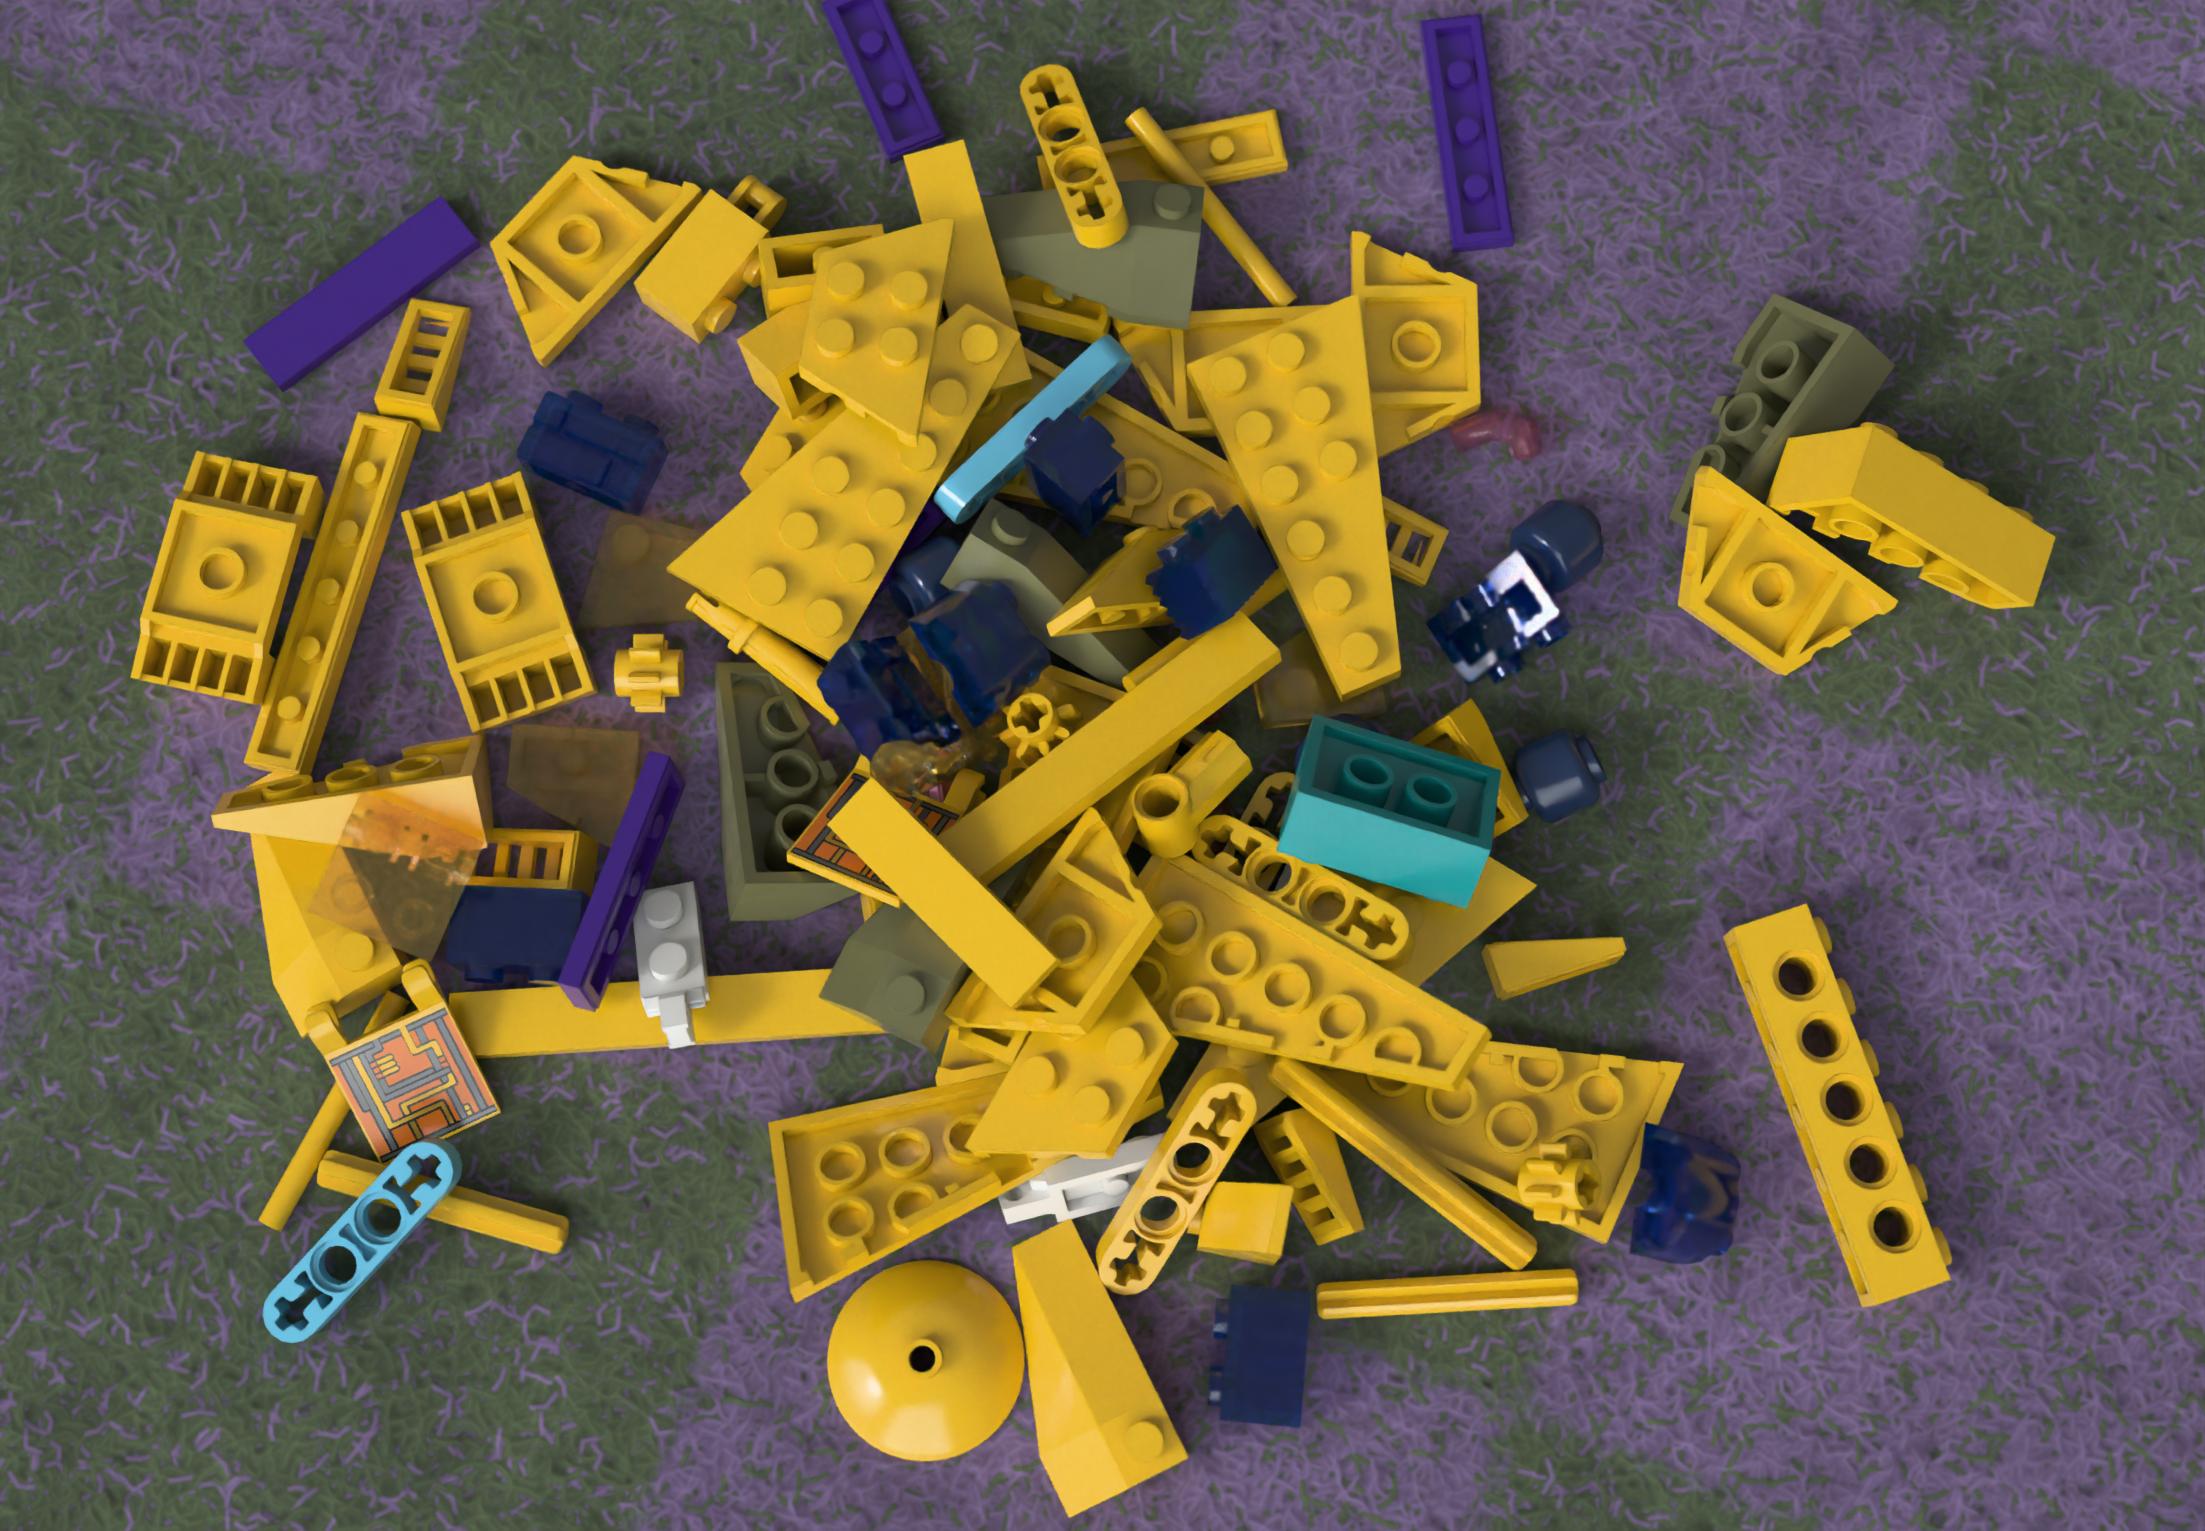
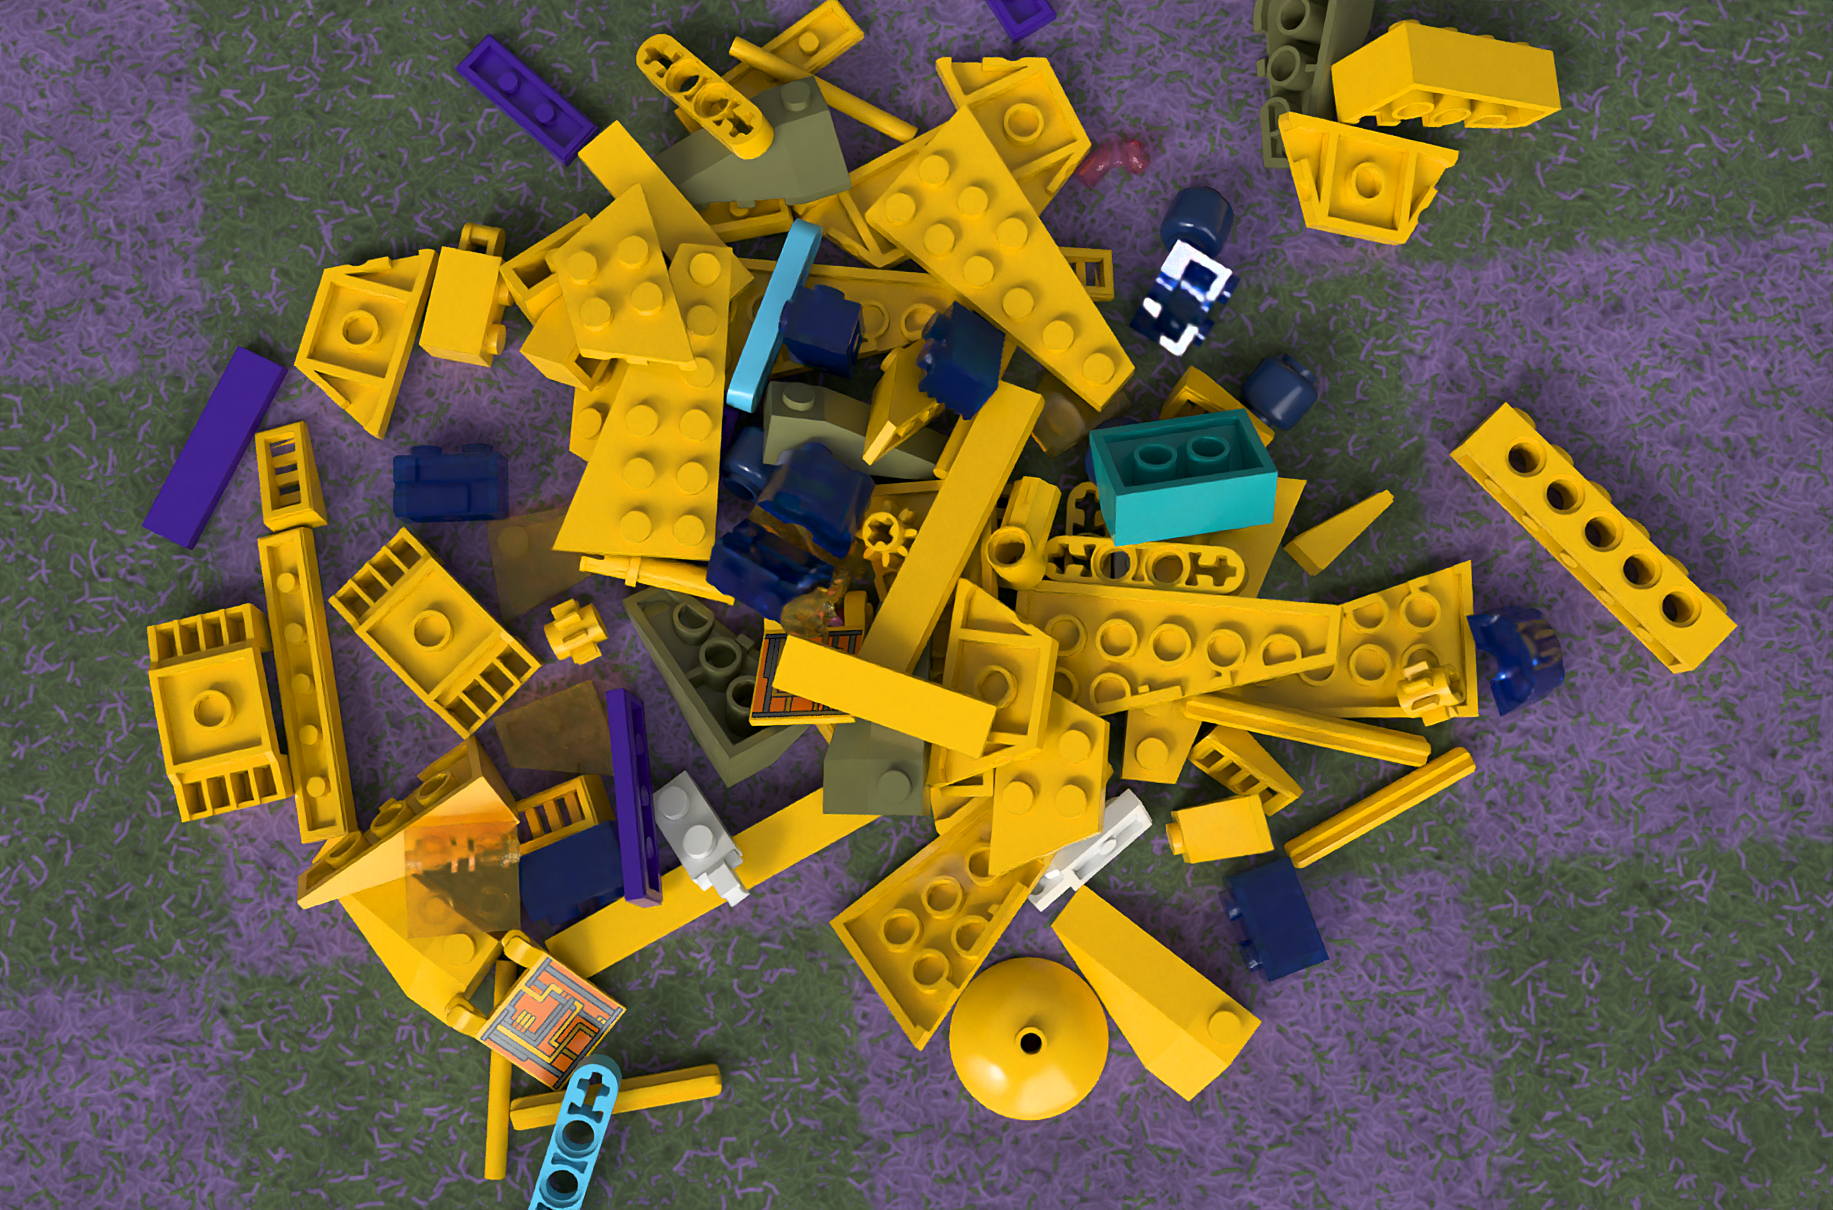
camera: 25 degrees left, 5 degrees up
(1183, 1185) = (1159, 823): yellow beam -> none

